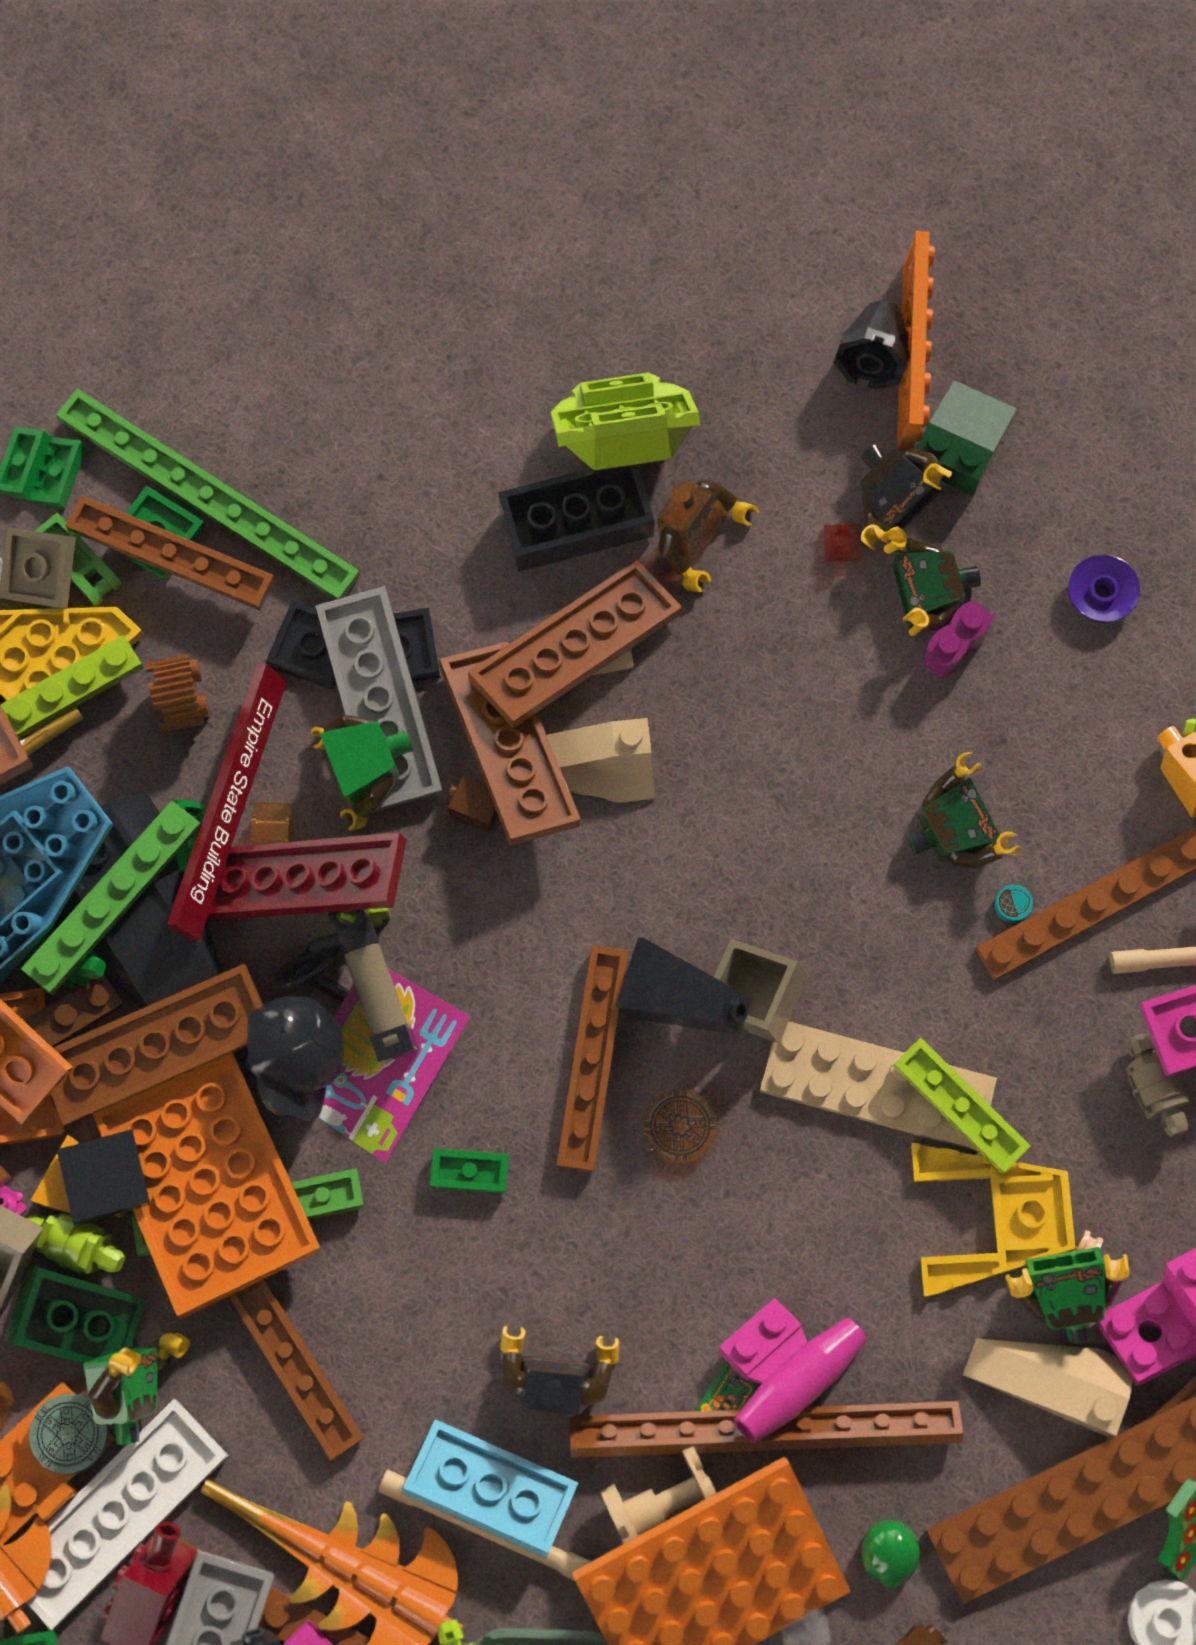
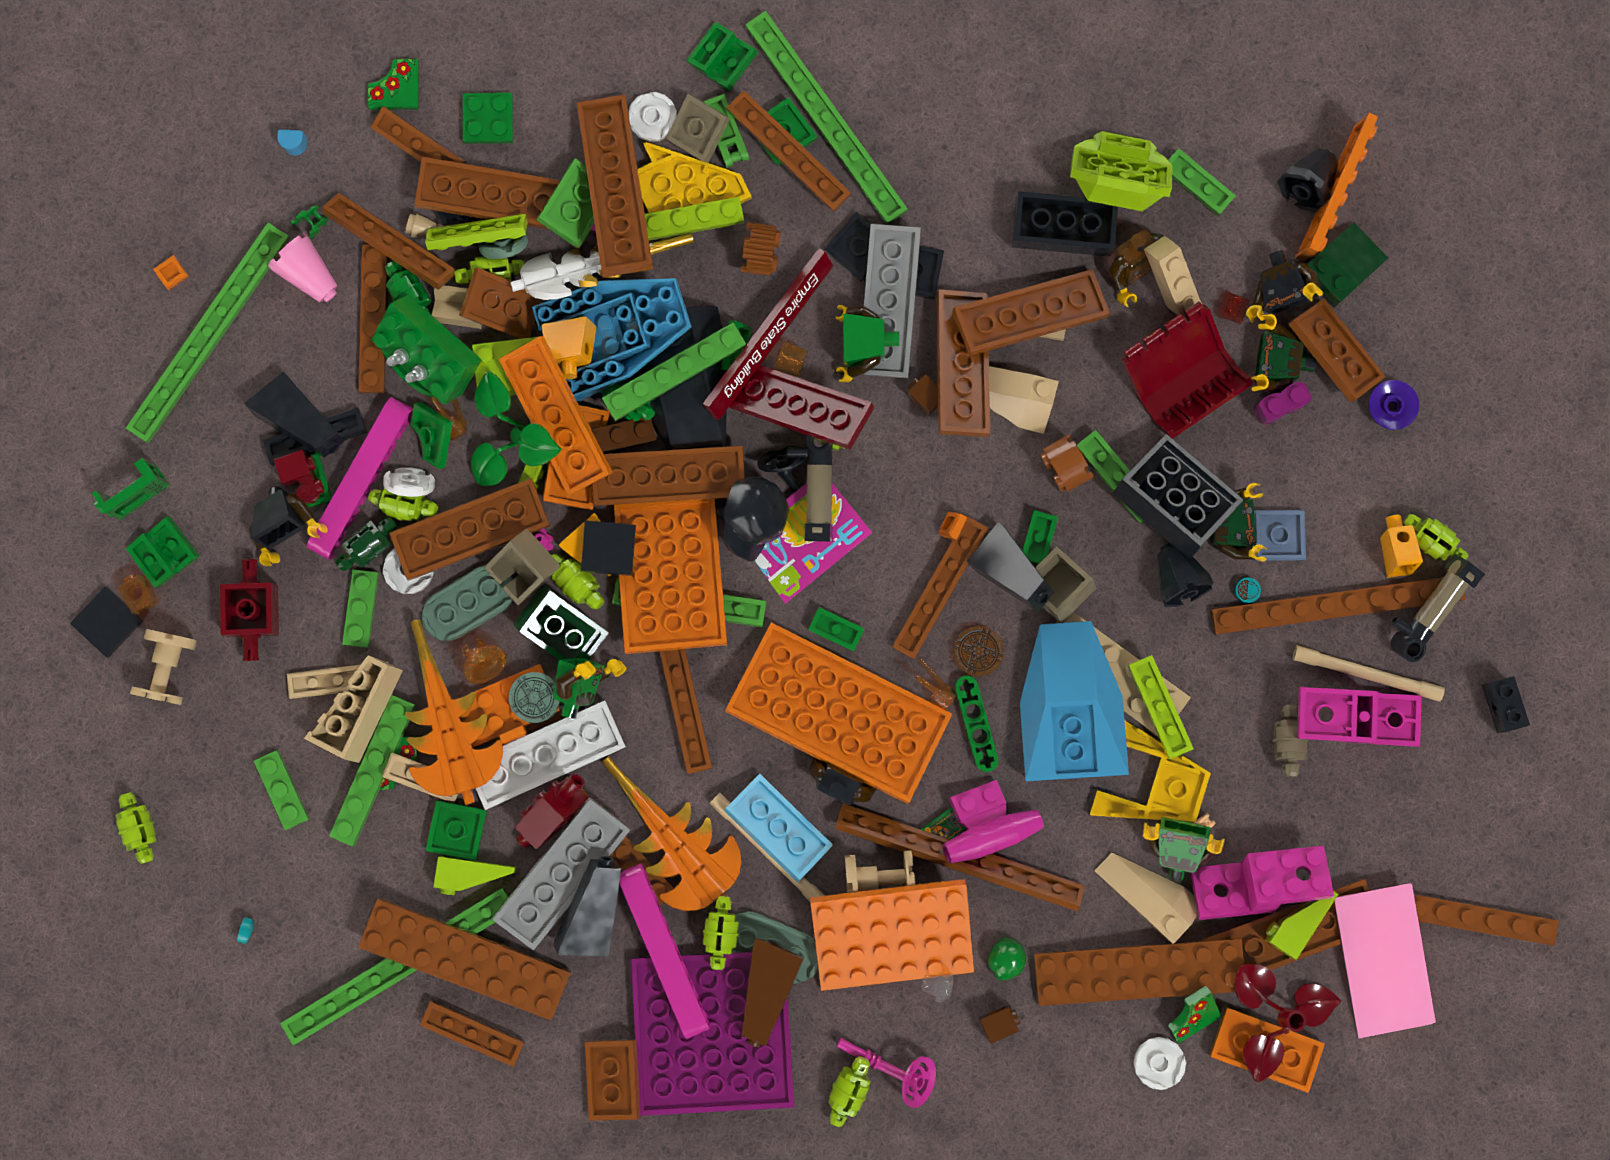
camera: 20 degrees right, 10 degrees up
(515, 1287) = (839, 713): none -> orange plate
(577, 966) = (952, 525): none -> orange tile
(652, 1208) = (942, 696): none -> clear orange plant
(702, 823) = (1067, 464): none -> dark orange brick
(702, 935) = (1039, 536): none -> green plate
(719, 1226) = (978, 723): none -> green beam
(734, 402) = (1200, 183): none -> bright green plate
(746, 527) = (1172, 275): none -> tan brick
(777, 817) = (1105, 463): none -> bright green plate
(808, 645) = (1183, 371): none -> dark red hinge
(839, 1154) = (1071, 707): none -> dark azure wedge
(868, 810) = (1177, 496): none -> black slope
(916, 917) = (1180, 577): none -> black cone
(1000, 546) = (1337, 350): none -> dark orange plate
(1030, 810) = (1281, 533): none -> sand blue tile

